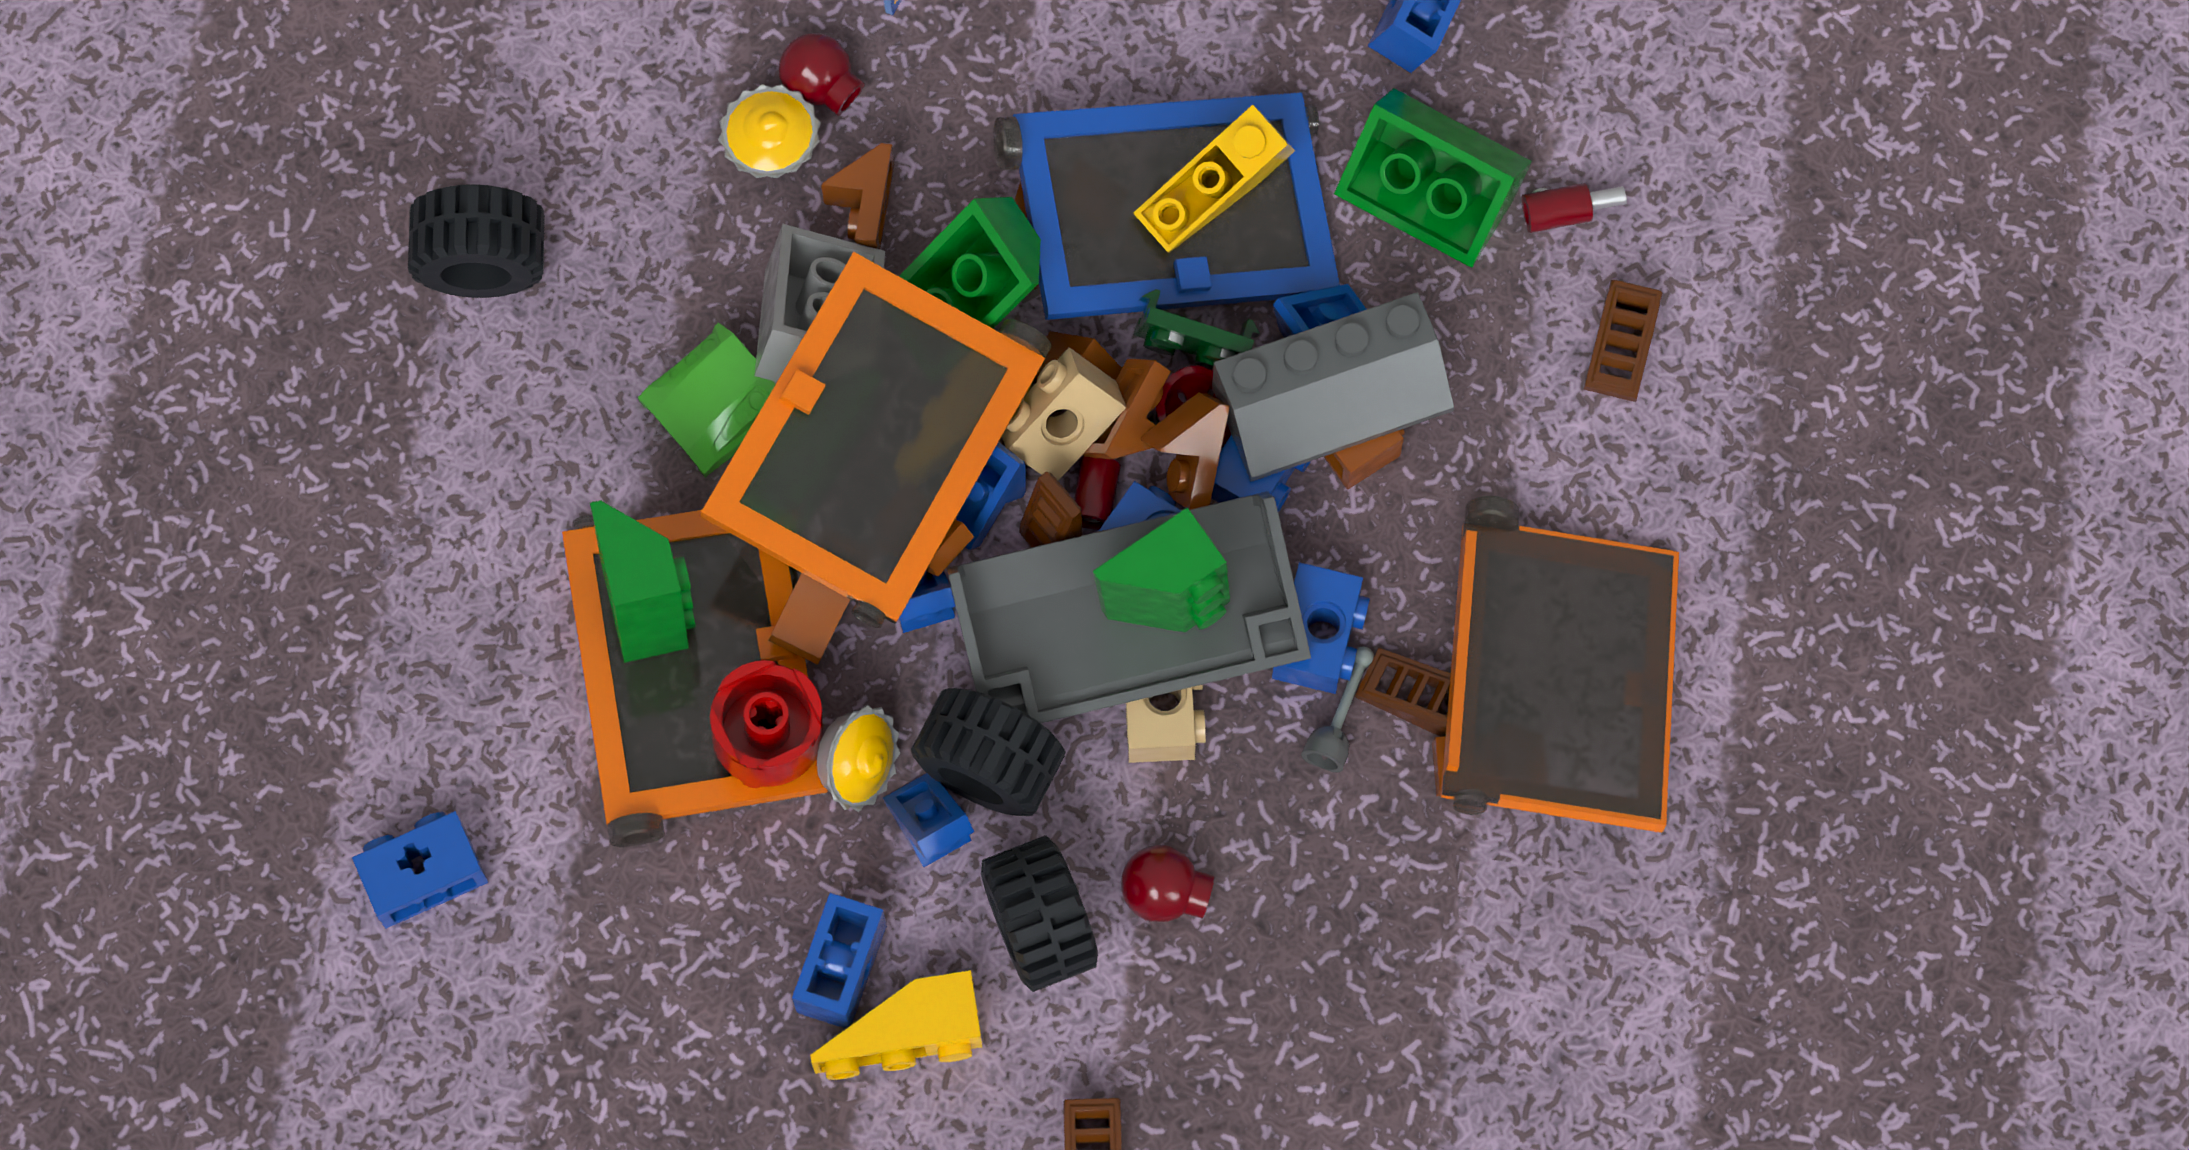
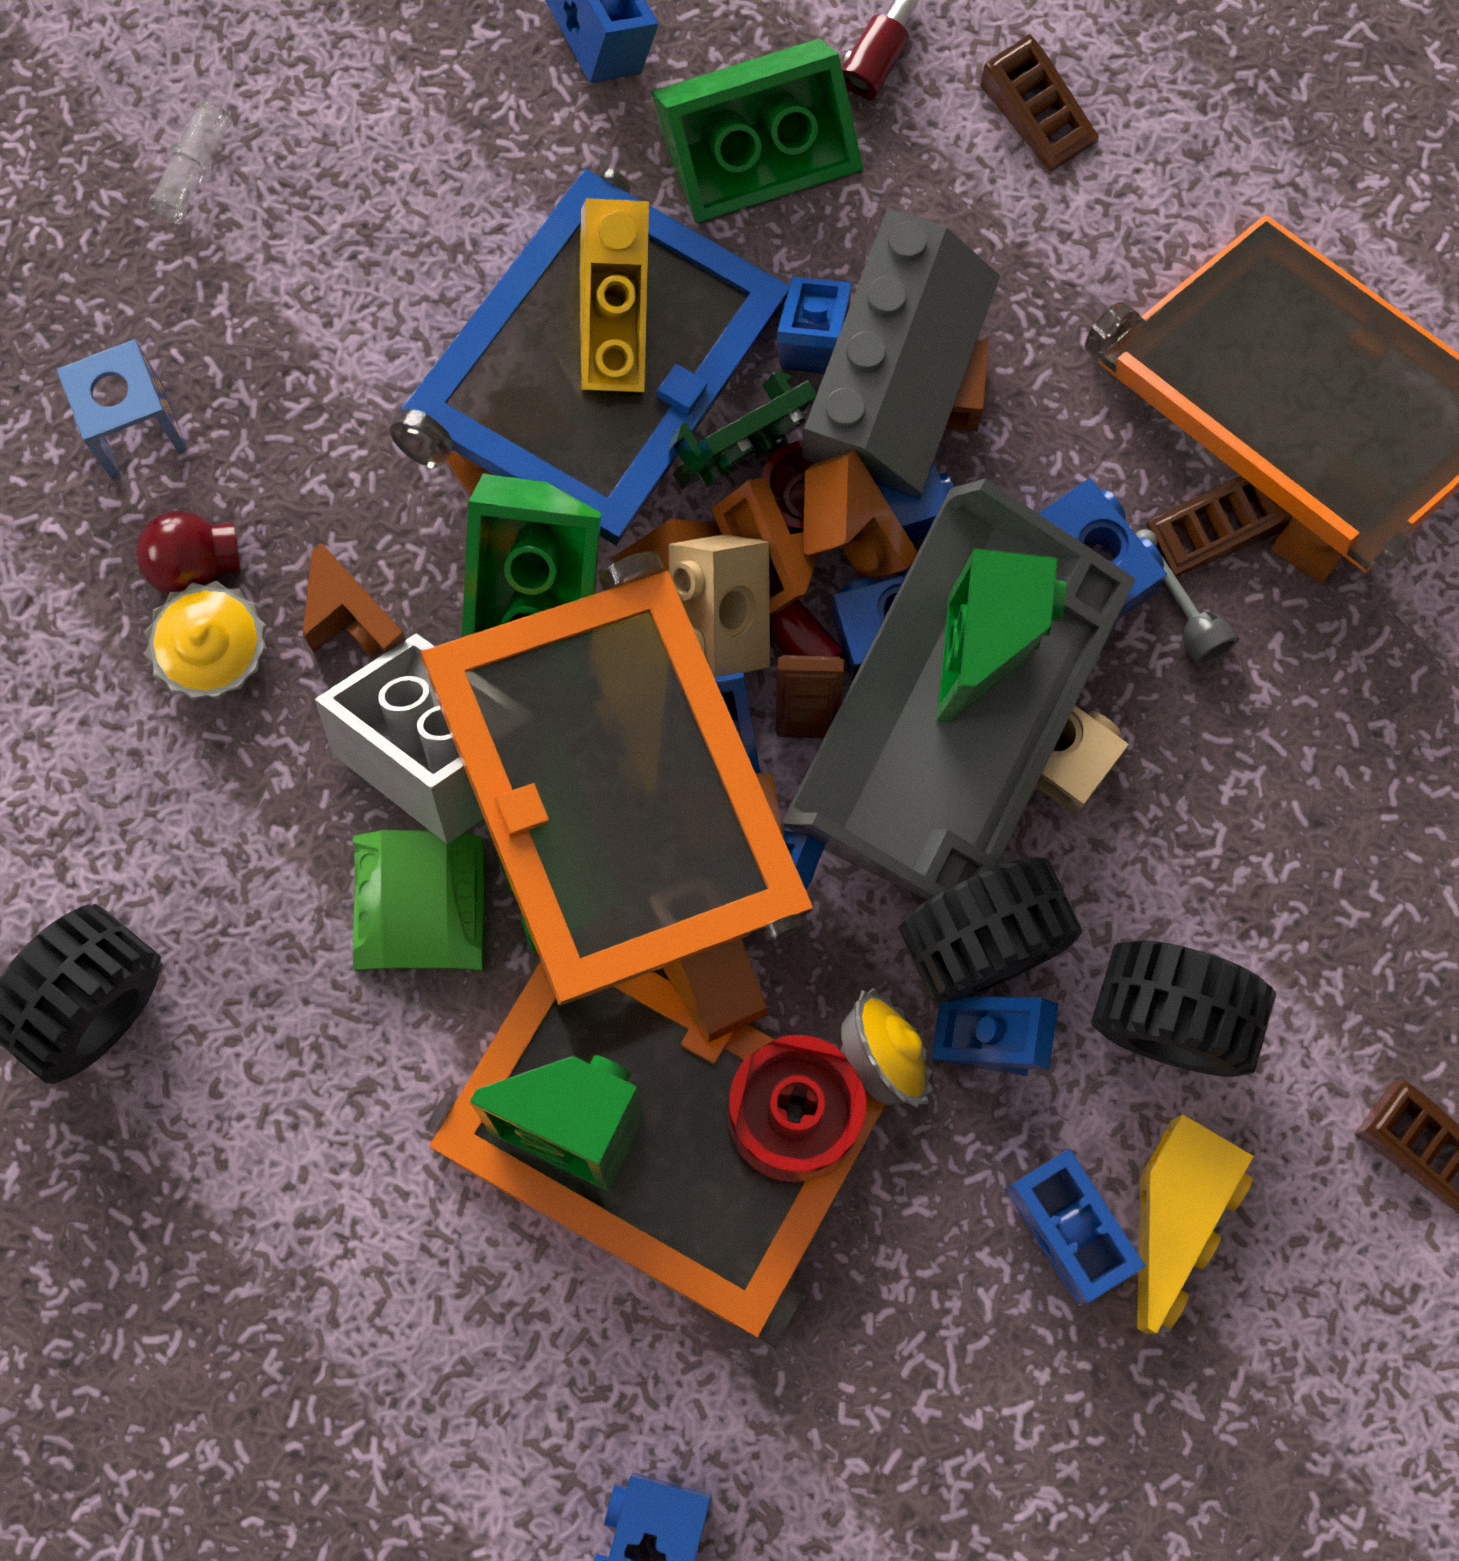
camera: 50 degrees left, 5 degrees up
(1163, 885) = (1227, 876): dark red piece -> none

